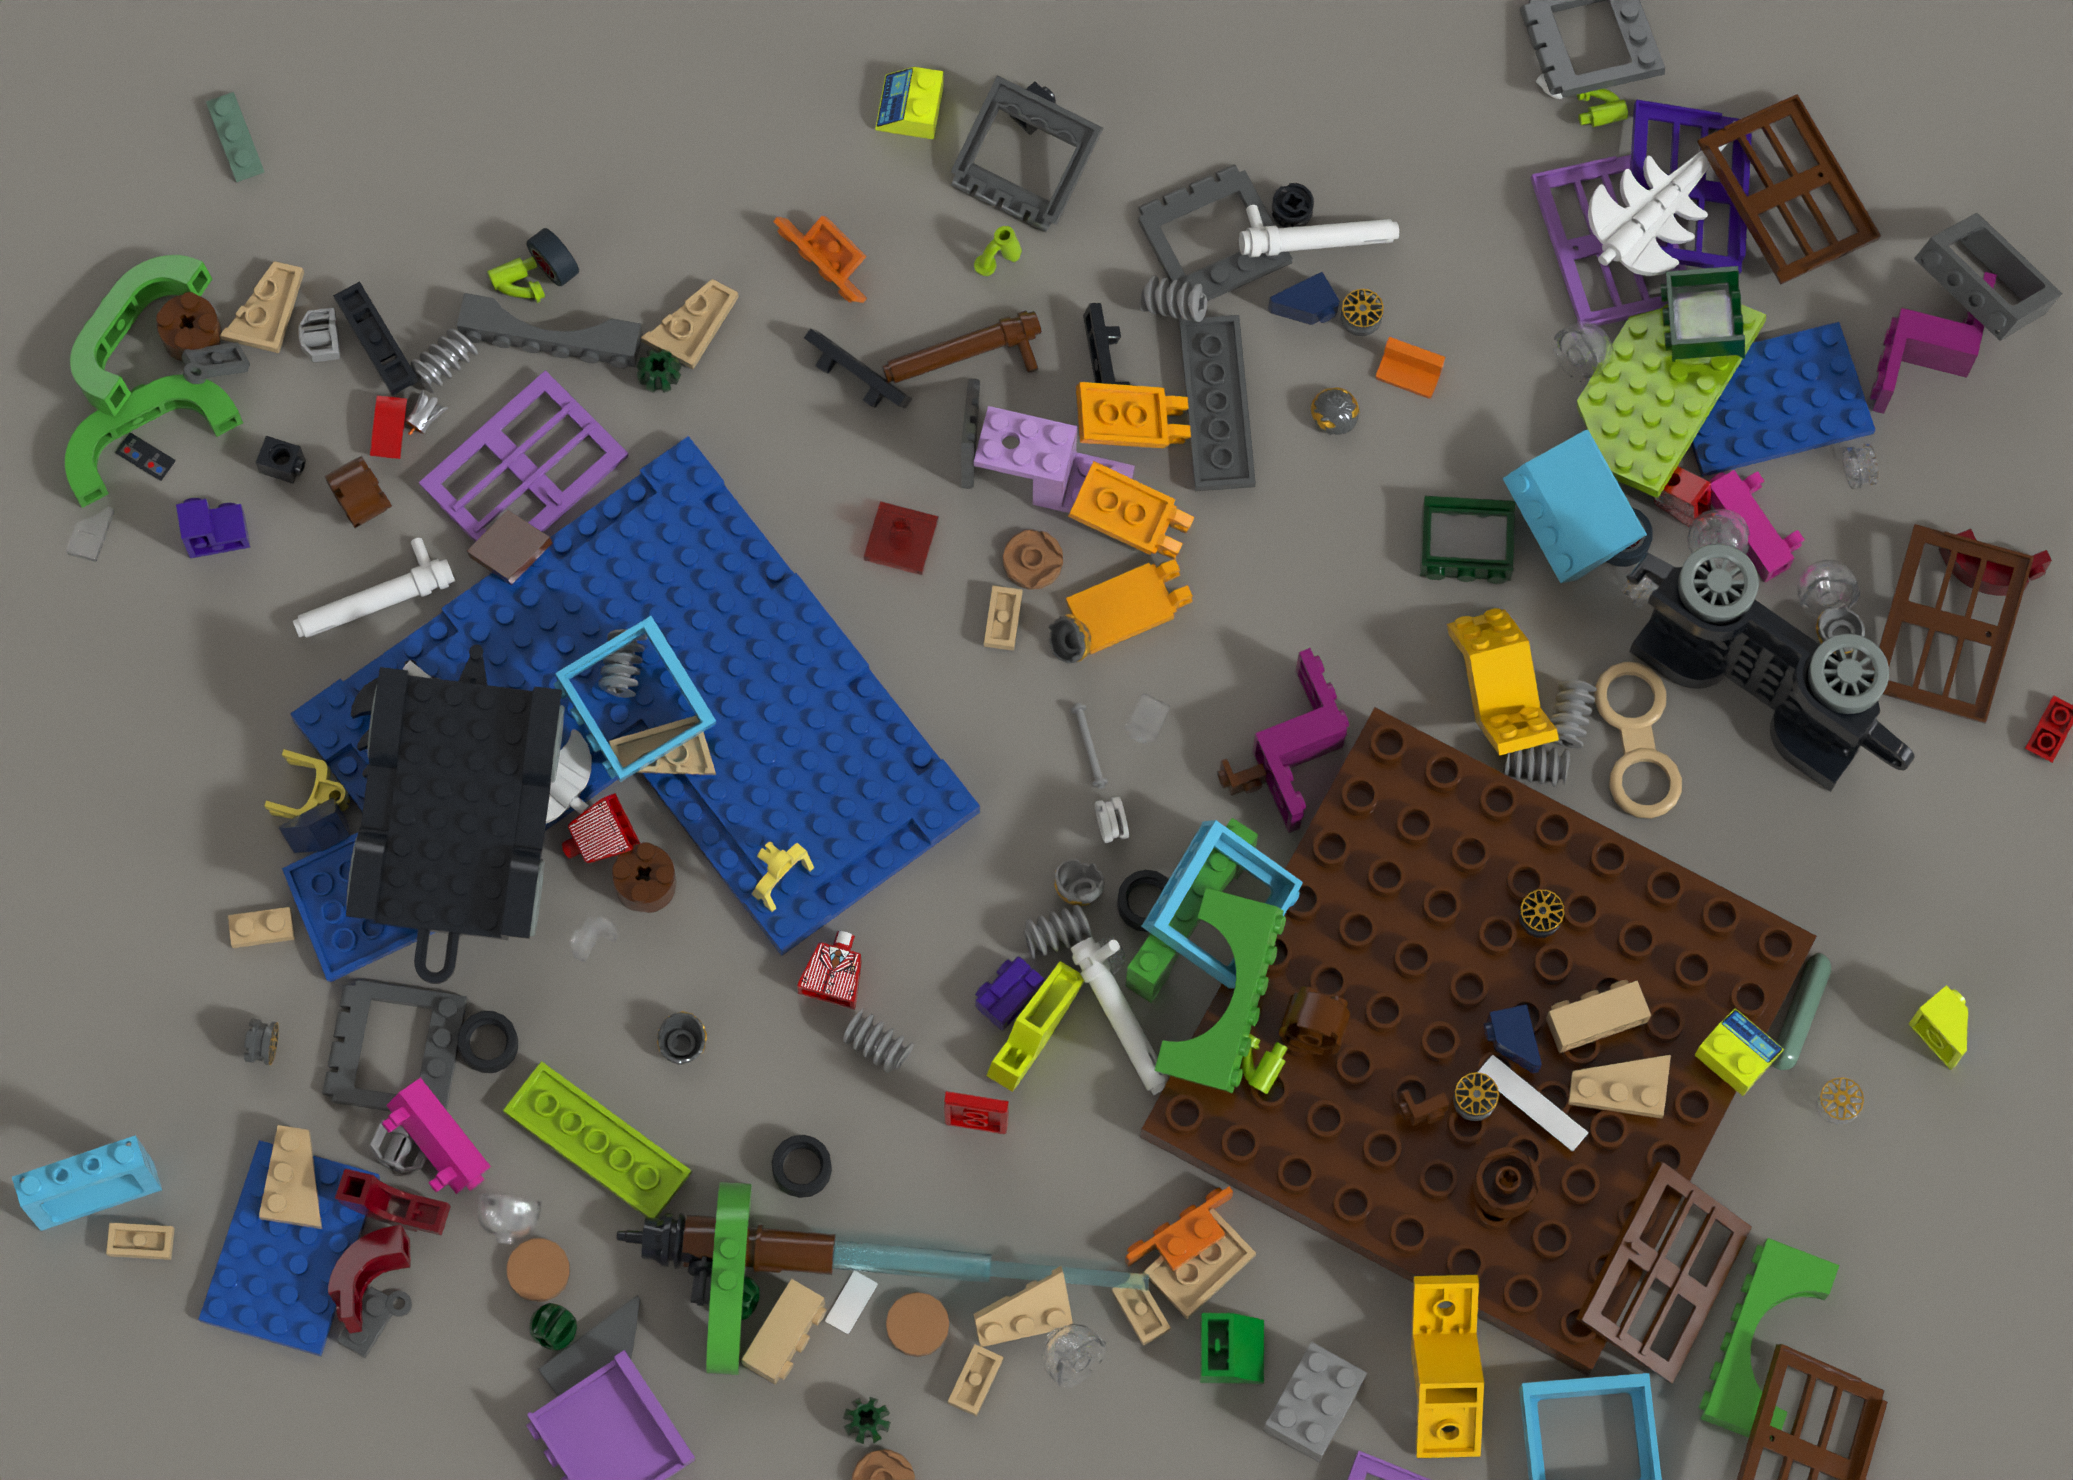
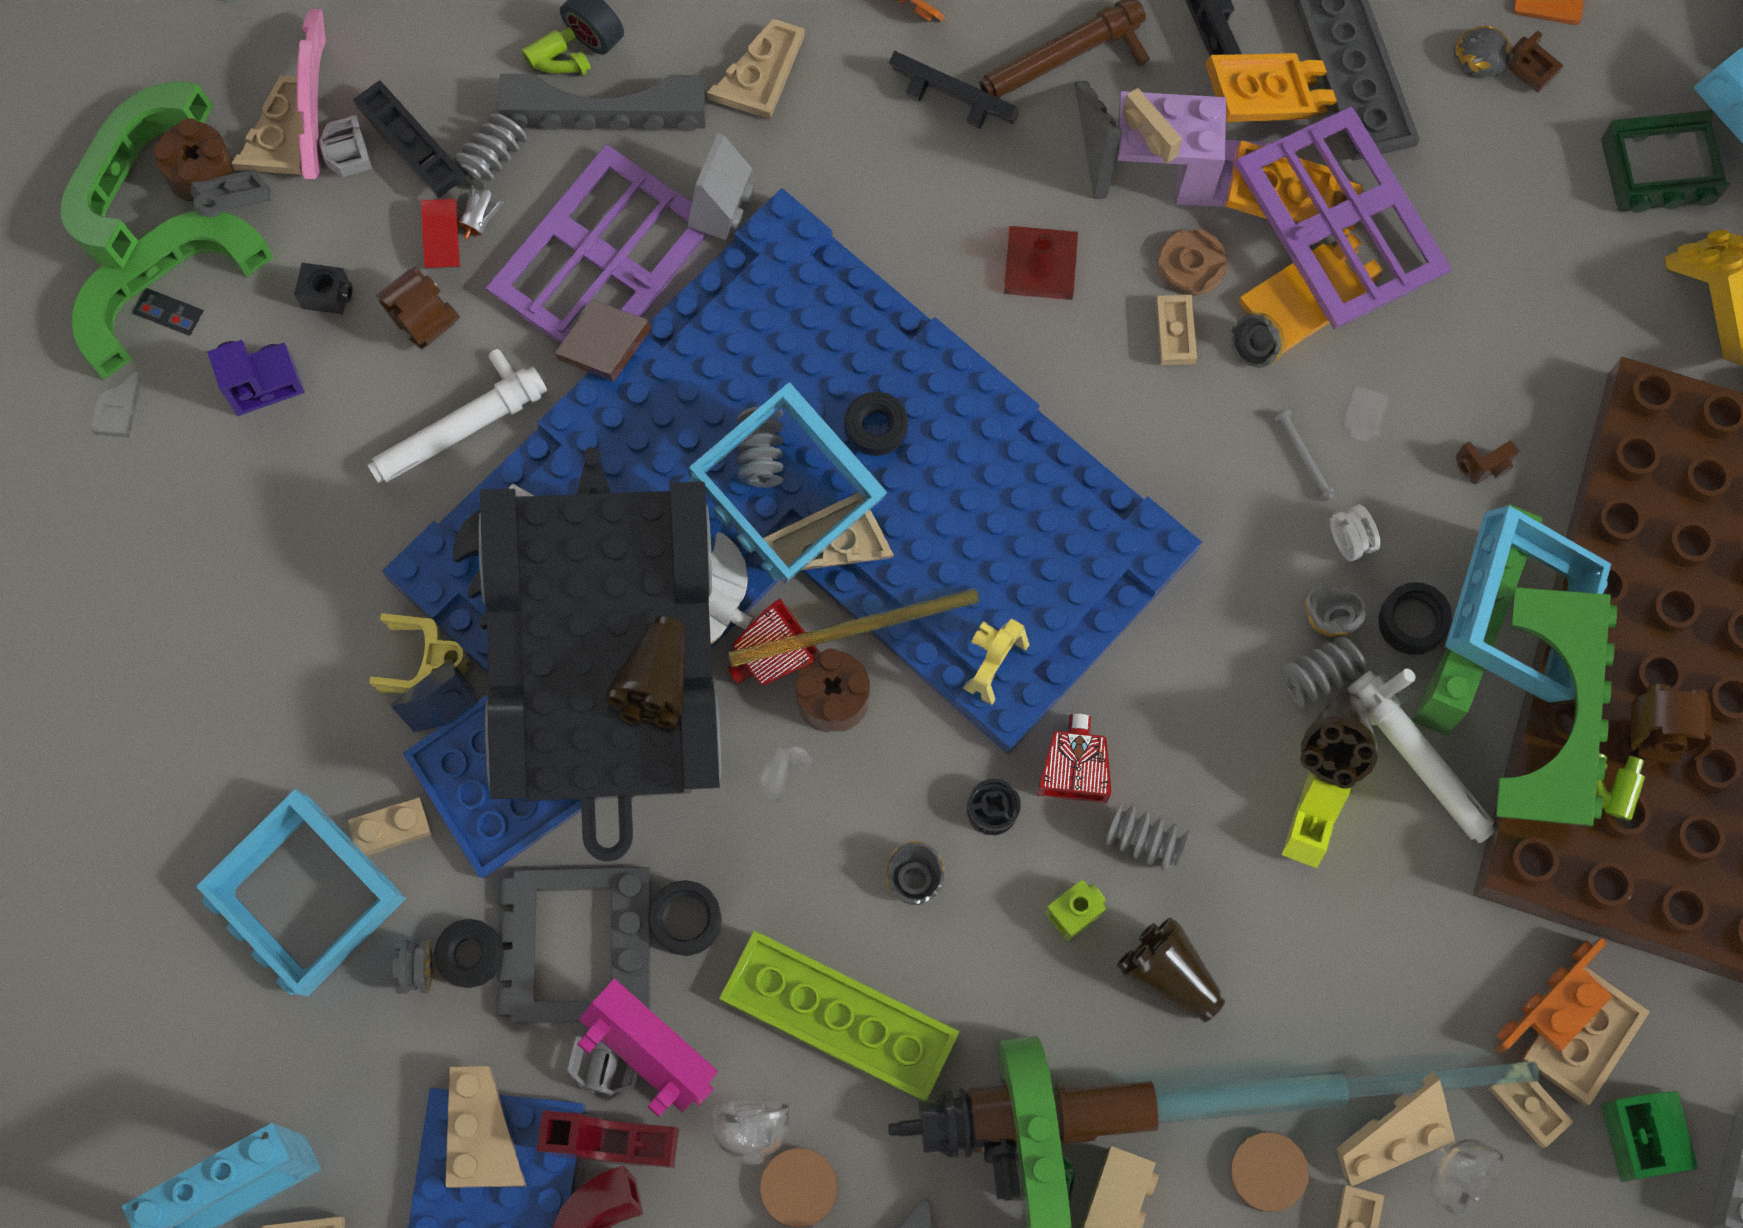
camera: 10 degrees left, 0 degrees up
(151, 925) = (221, 885): none -> medium azure piece
(291, 1032) = (447, 947): none -> black tyre
(296, 279) = (307, 92): none -> bright pink tile
(491, 840) = (652, 677): none -> dark brown cone
(634, 431) = (721, 190): none -> light grey slope
(658, 362) = (735, 122): dark green piece -> none
(669, 828) = (853, 627): none -> clear yellow piece
(721, 640) = (881, 403): none -> black tyre
(758, 995) = (993, 806): none -> black wheel
(790, 1145) = (1109, 981): black tyre -> none
(807, 1090) = (1076, 909): none -> lime brick
(851, 1302) = (1182, 1158): white sticker -> none
(874, 1152) = (1172, 971): none -> dark brown cone
(976, 1112) = (1289, 902): red tile -> none
(1006, 454) = (1157, 132): none -> tan plate
(1008, 992) = (1278, 761): dark purple brick -> none
(1044, 989) = (1340, 742): none -> dark brown cone
(1156, 545) = (1298, 237): none -> medium lavender door
(1300, 739) = (1566, 392): magenta bracket -> none
(1376, 429) = (1533, 63): none -> reddish brown bracket

